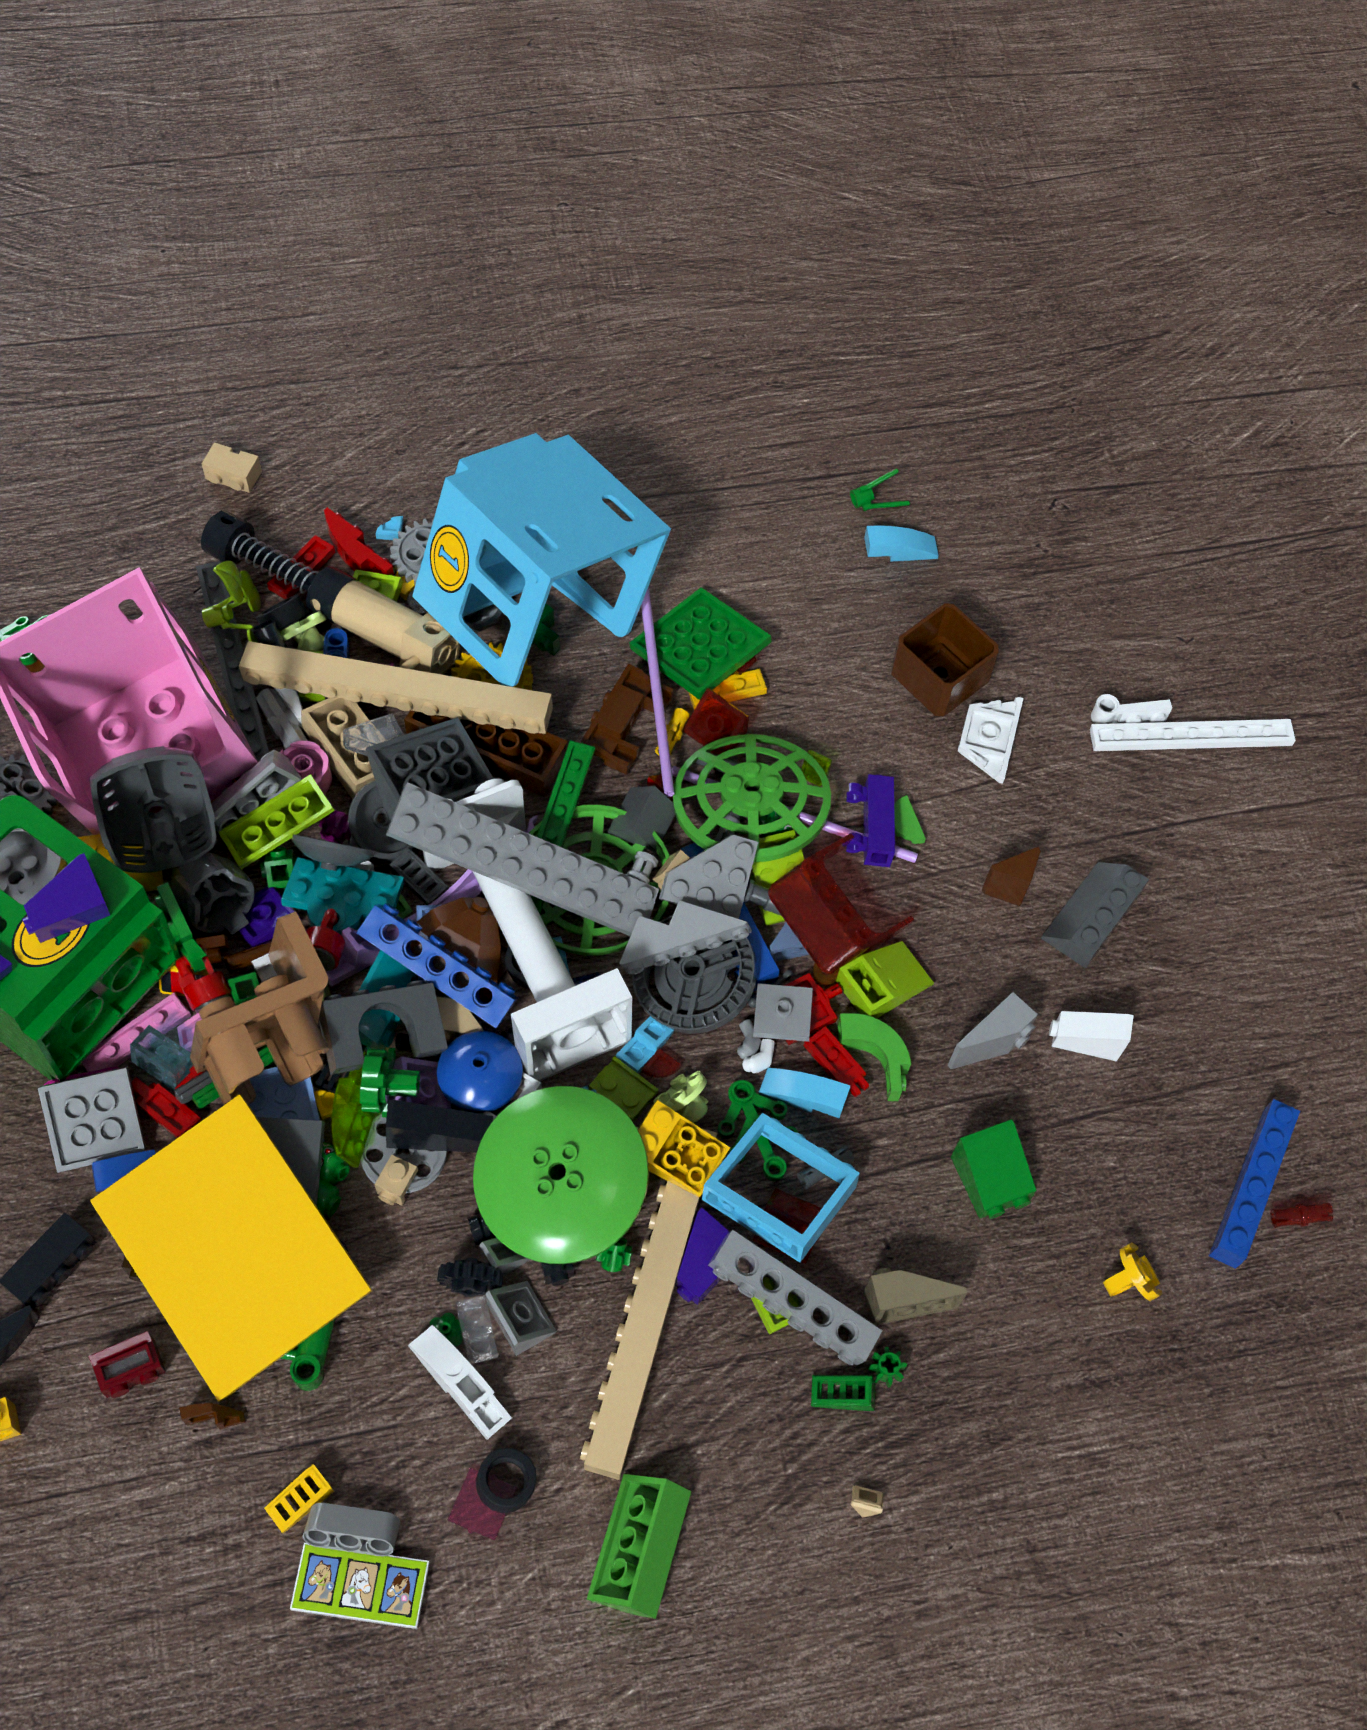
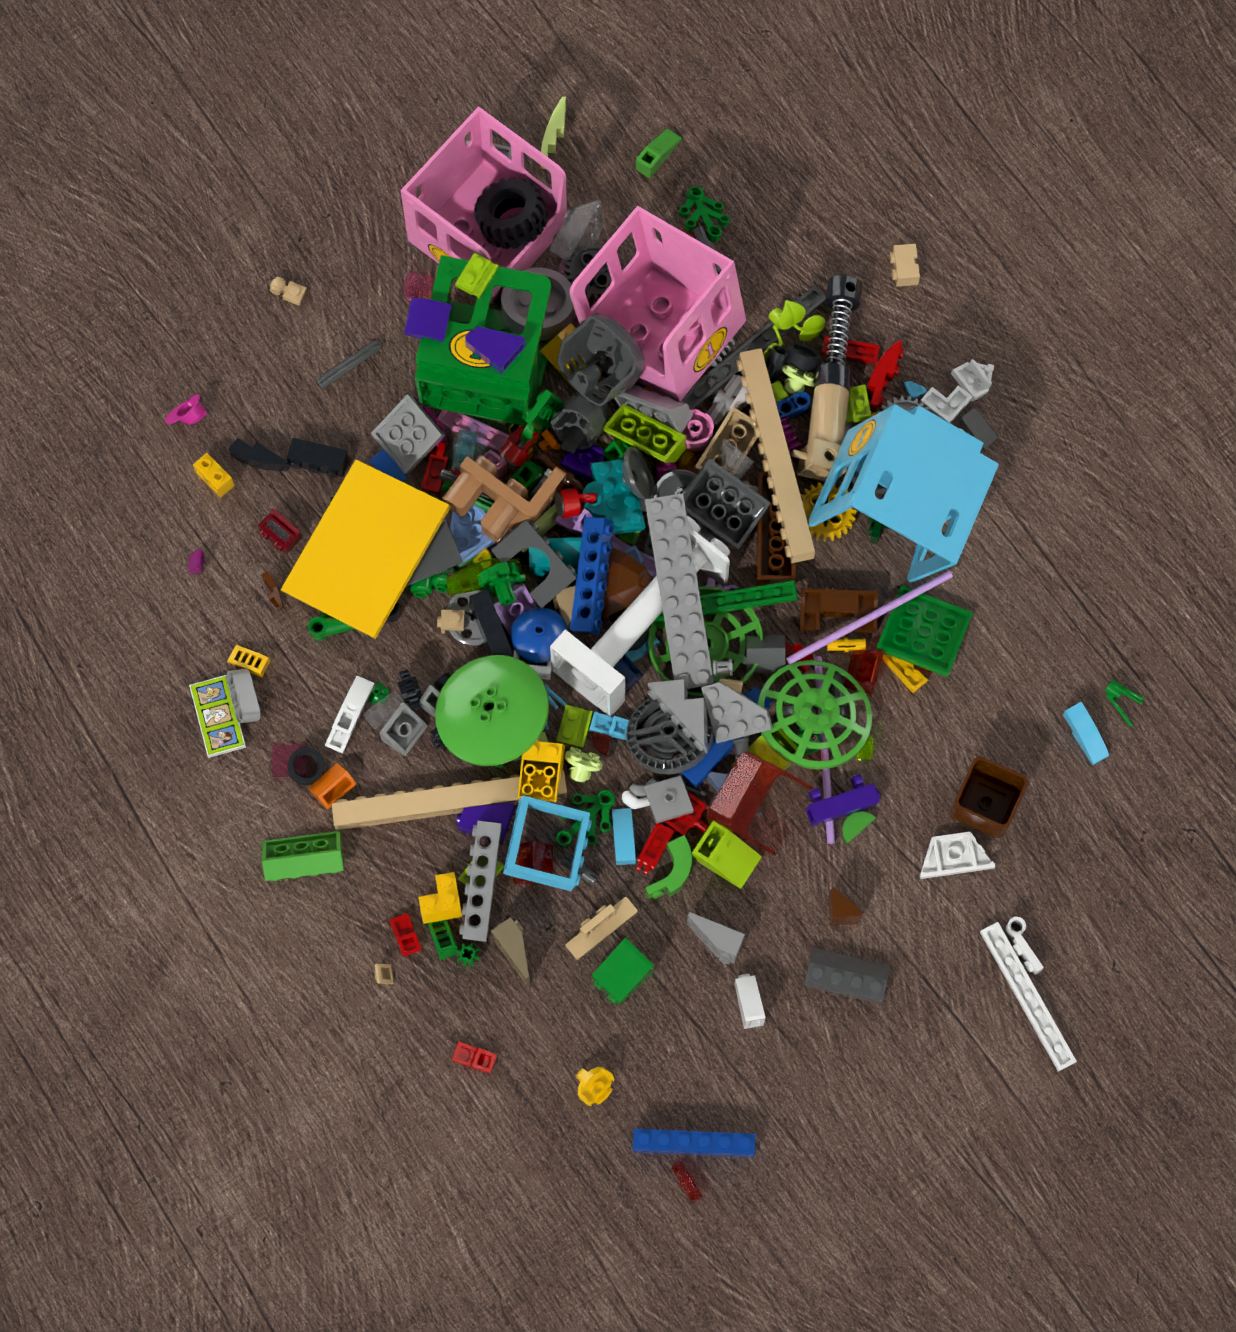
camera: 70 degrees right, 10 degrees up
(100, 1514) = (196, 562): none -> magenta slope
(338, 797) = (687, 462): none -> clear orange tile
(413, 466) = (974, 378): none -> white slope
(429, 492) = (948, 407): none -> white plate
(553, 1454) = (332, 785): none -> orange brick
(616, 1256) = (463, 768): green gear -> none
(801, 1361) = (445, 903): none -> yellow brick
(820, 1444) = (405, 934): none -> red slope
(917, 1175) = (600, 927): none -> tan bracket
(1034, 1423) = (473, 1057): none -> red slope

